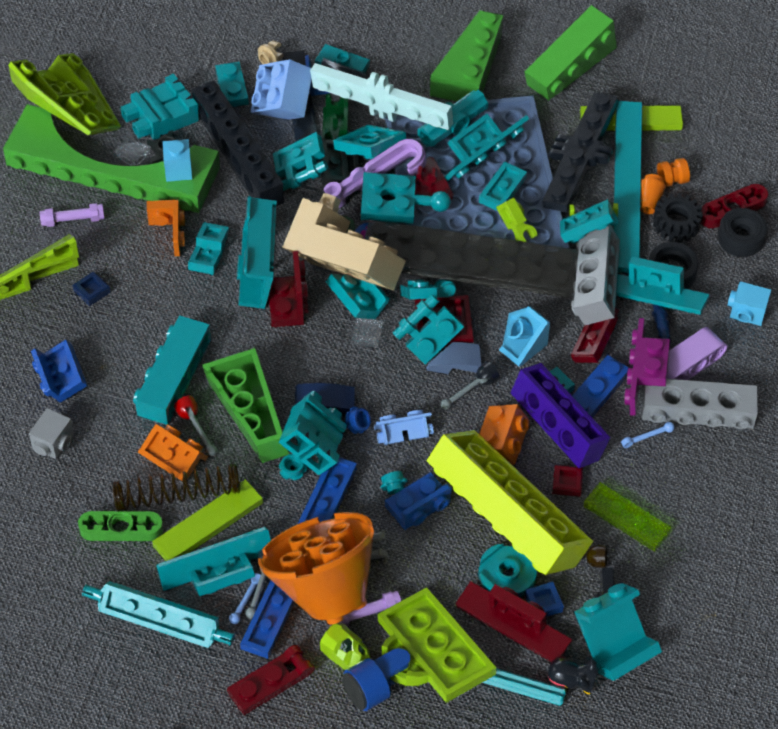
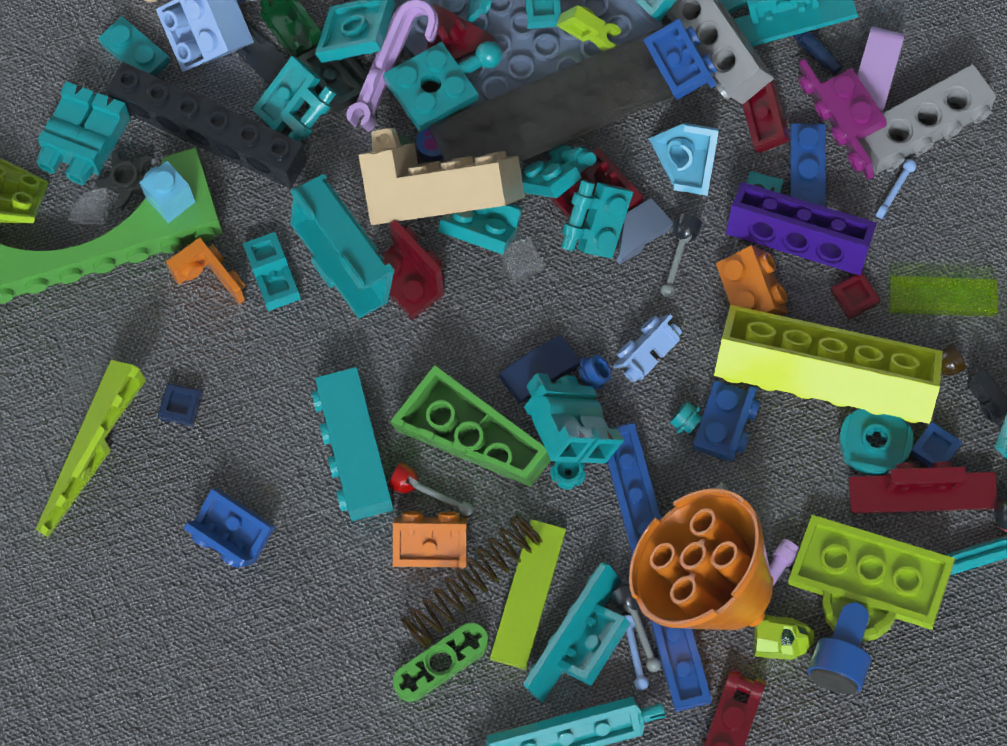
camera: 30 degrees left, 15 degrees up
(49, 217) = (108, 310): lavender bar -> none
(51, 434) = (284, 610): light grey brick -> none
(558, 267) = (679, 59): none -> blue bracket

